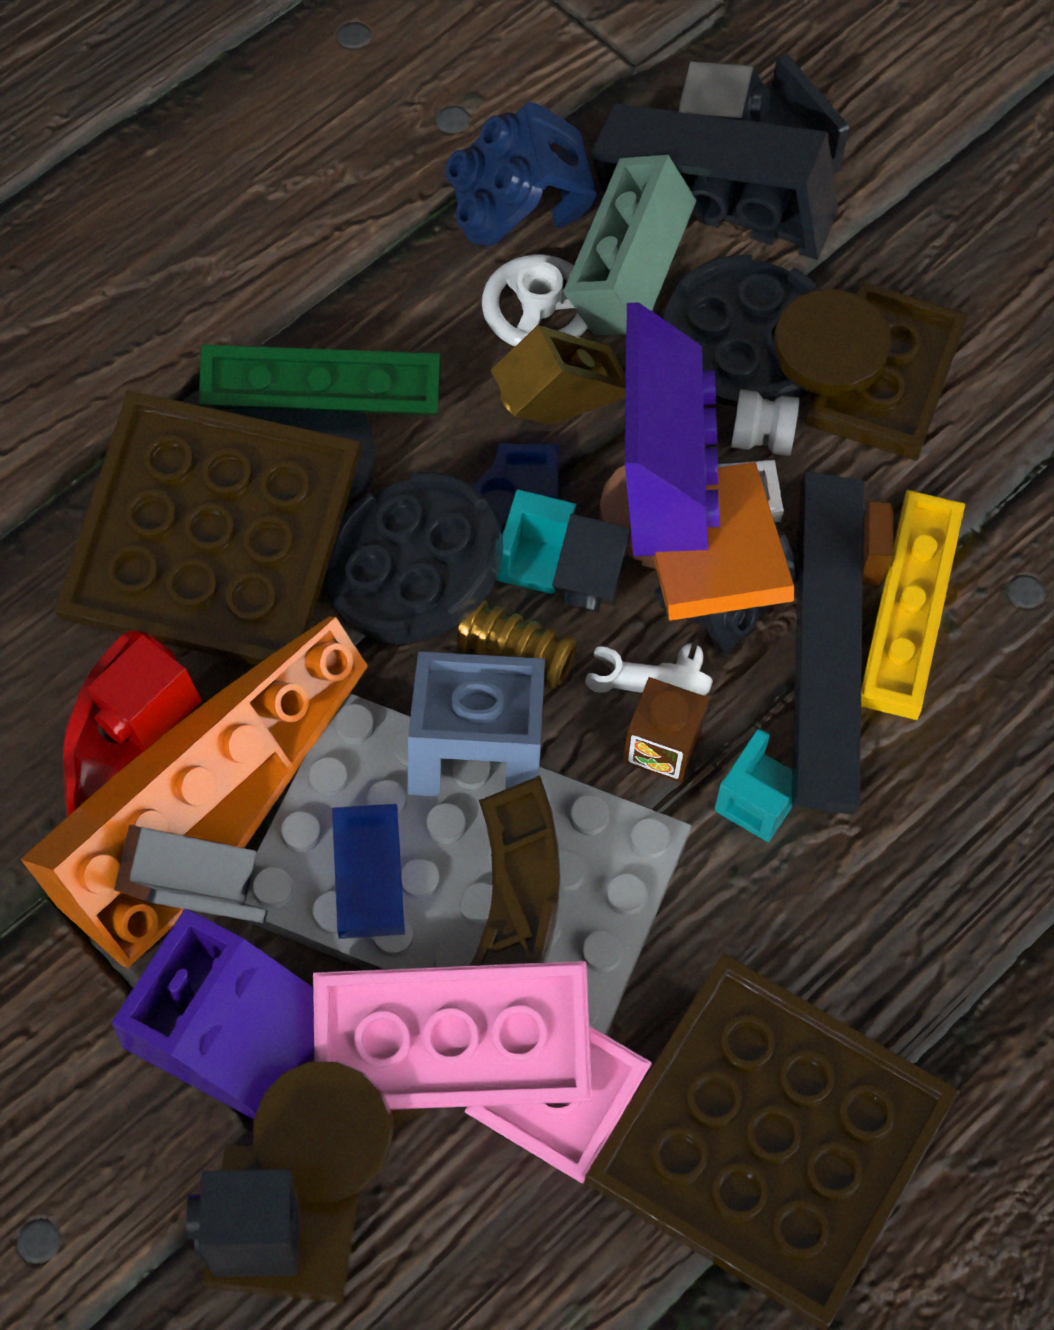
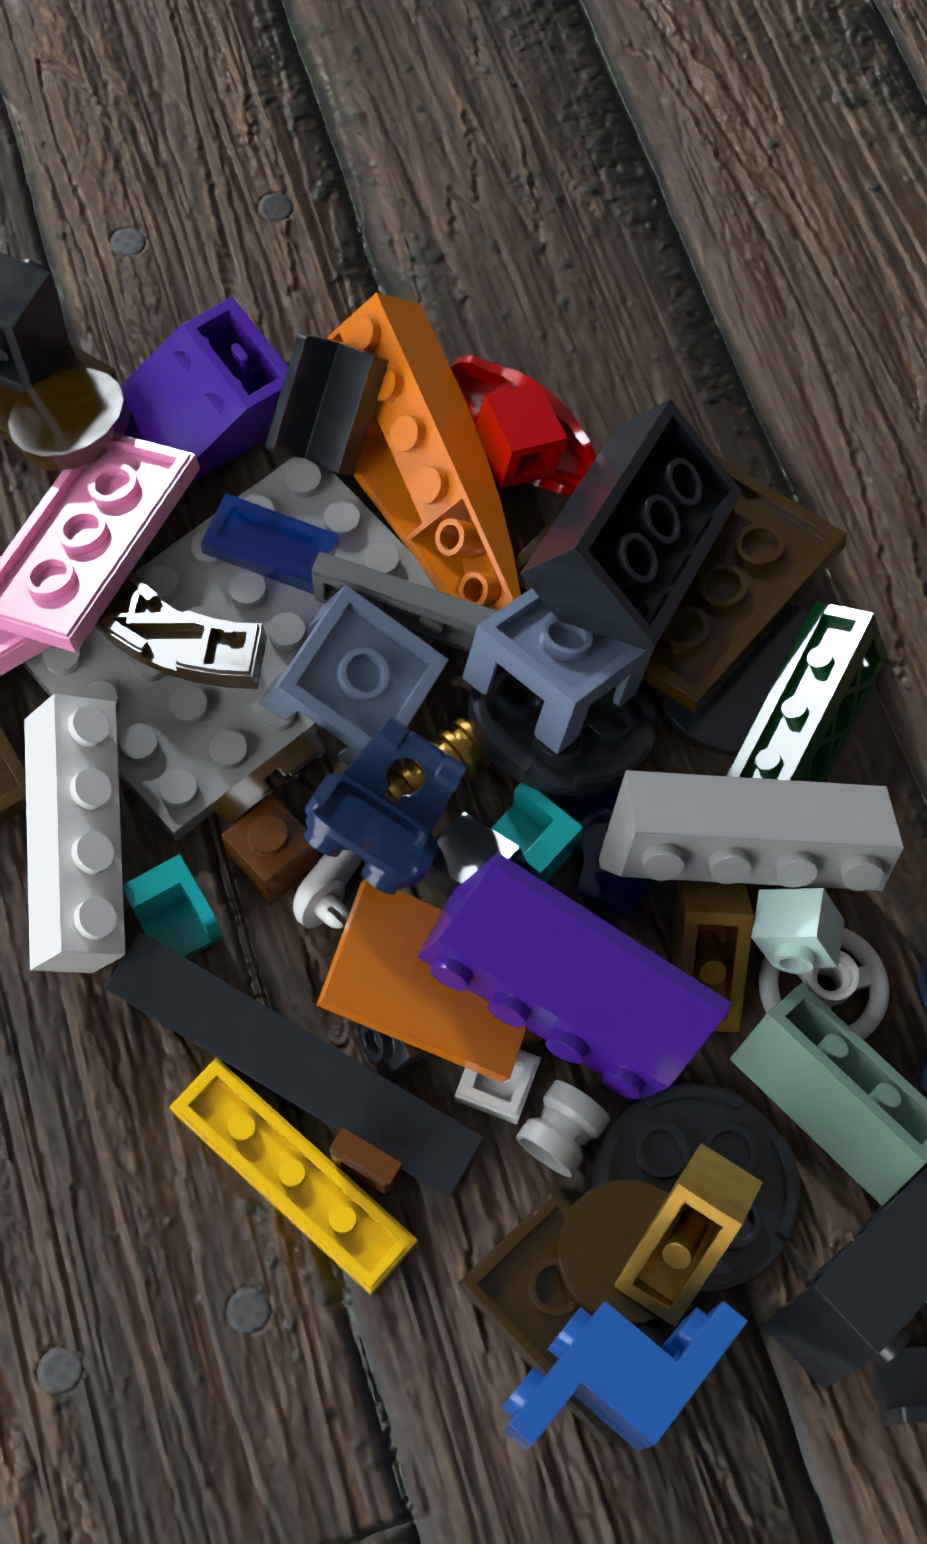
camera: 115 degrees right, 5 degrees up
(223, 534) = (634, 530): none -> black slope
(374, 549) = (556, 662): none -> sand blue panel
(383, 708) = (410, 604): none -> dark grey tile
(479, 347) = (752, 831): none -> light grey slope
(526, 301) = (798, 929): none -> light aqua plate
(606, 746) = (271, 776): none -> dark brown tile
(611, 630) = (386, 832): none -> dark blue piece
(749, 886) = (73, 835): none -> white brick
(804, 285) = (689, 1234): none -> pearl gold slope
(929, 267) = (622, 1373): none -> blue bracket

